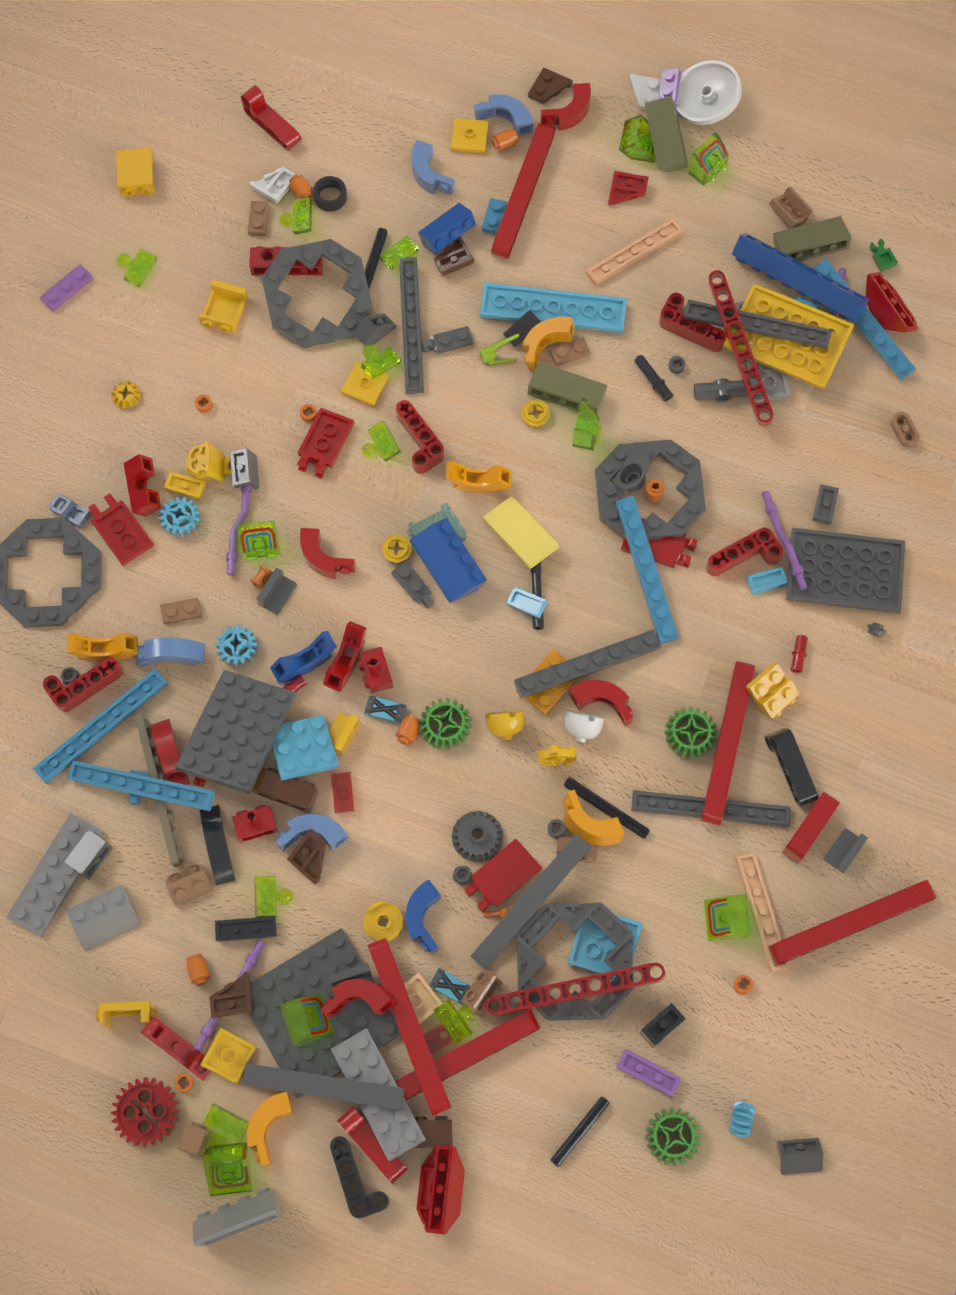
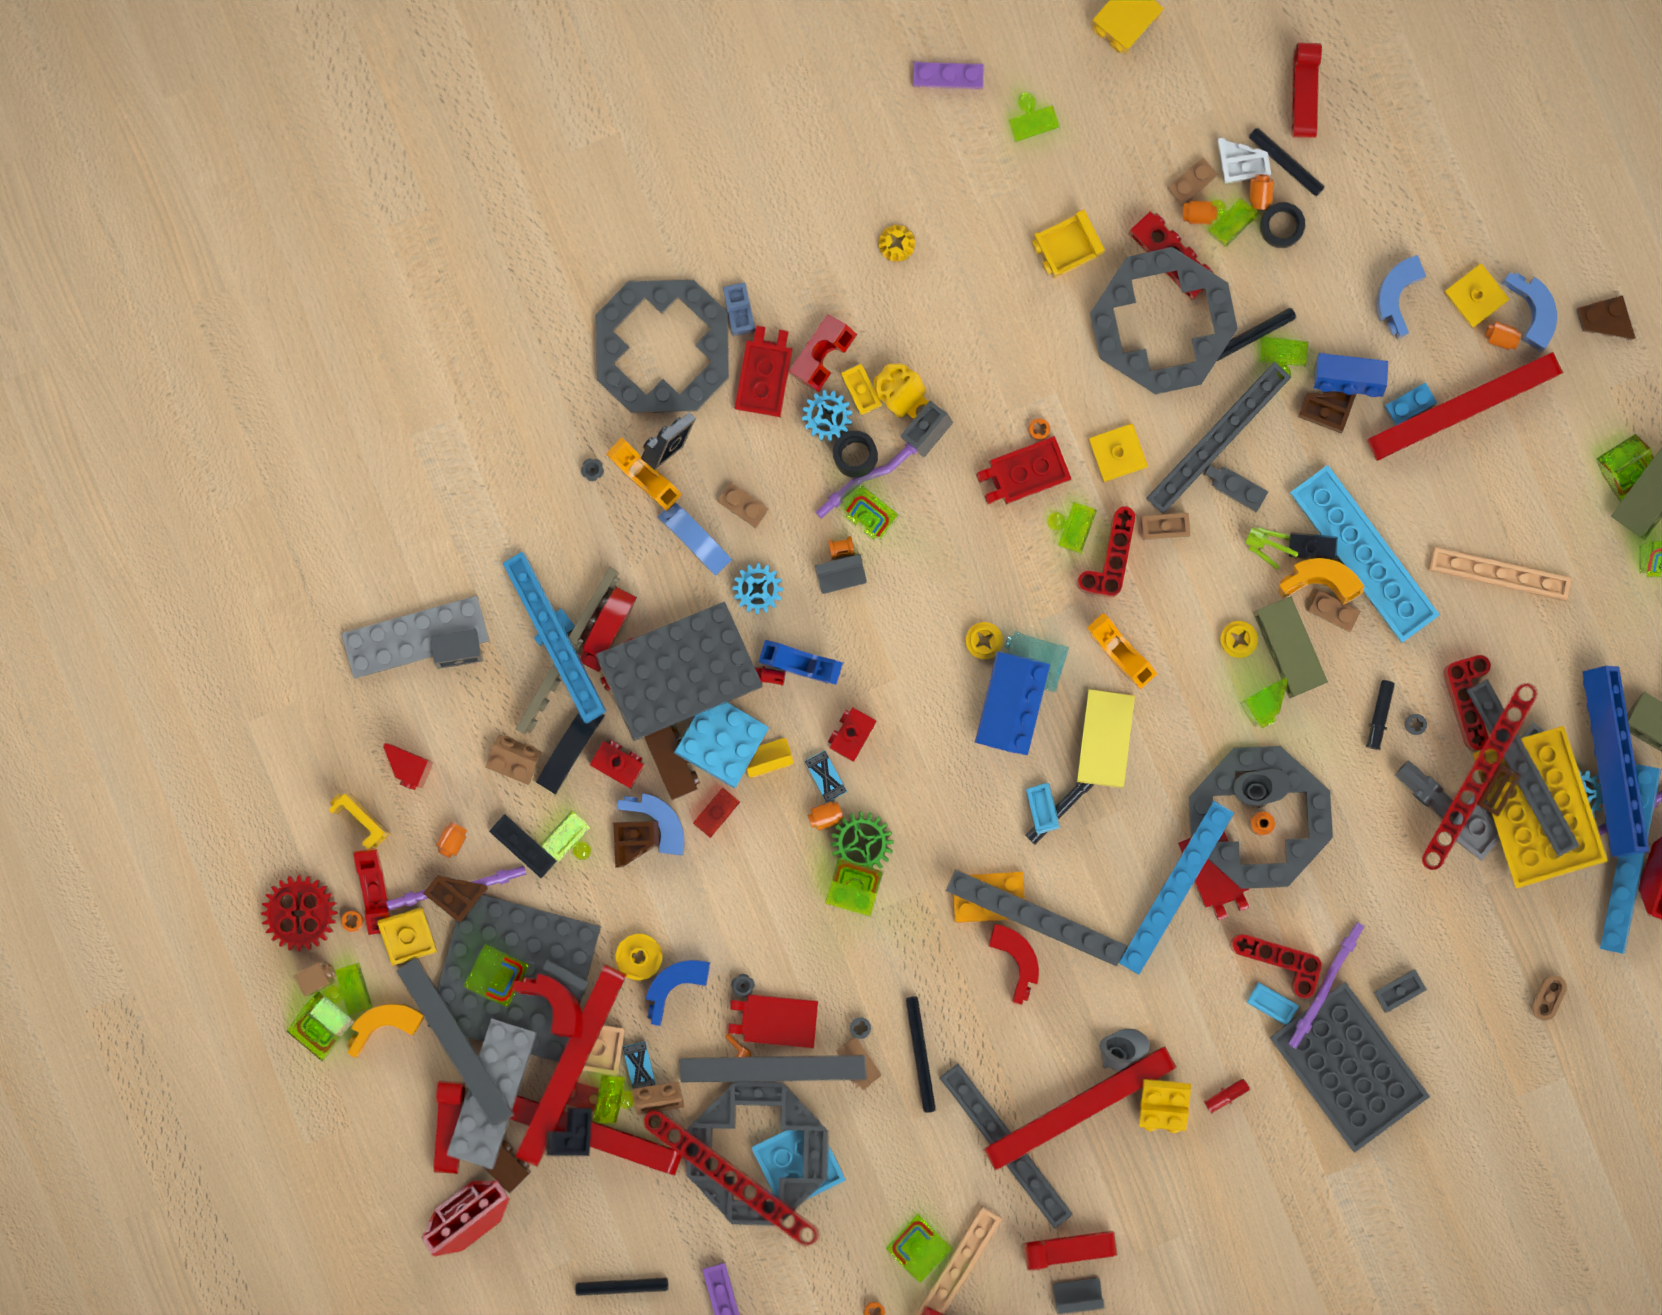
camera: 50 degrees right, 15 degrees up
(85, 681) = (600, 489): red beam -> none
(98, 612) = (667, 441): none -> black plate
(100, 726) = (575, 543): dark azure plate -> none
(103, 917) = (418, 717): light grey slope -> none
(125, 950) = (407, 766): none -> red slope
(199, 400) = (956, 331): orange bush -> none
(224, 530) = (853, 437): none -> black tyre
(236, 1218) = (288, 1073): light grey slope -> none
(278, 227) = (1199, 212): none -> orange brick
(301, 163) = (1286, 162): none -> black axle
(320, 562) = (907, 568): red arch -> none
(346, 658) = (836, 698): red arch -> none
(353, 1176) = (410, 1135): black beam -> none
(374, 328) = (1181, 407): dark grey slope -> none
(380, 362) = (1151, 446): clear neon green plate -> none
(413, 584) = (964, 688): dark grey hinge -> none
(432, 394) = (1165, 526): none -> medium nougat plate
(457, 1065) = (575, 1139): none -> black plate
(467, 751) = (854, 887): none -> clear neon green slope
(477, 849) = (801, 953): dark grey gear -> none
(505, 723) = (912, 896): yellow cylinder -> none
(556, 755) = (923, 970): yellow plate -> none
(571, 114) = (1599, 375): red arch -> none
(582, 725) = (974, 966): white cylinder -> none
(591, 830) = (883, 1055): light orange arch -> none
(627, 187) = (1563, 502): red wing -> none
(662, 1025) = (772, 1277): black brick -> none
(691, 716) = (1072, 1081): bright green gear -> none
(715, 685) = (1123, 1048): none -> dark grey piece
(763, 360) = (1509, 772): none -> reddish brown tile
(792, 765) = (1111, 1183): black beam -> none
(876, 629) = (1315, 1145): dark grey plate -> none

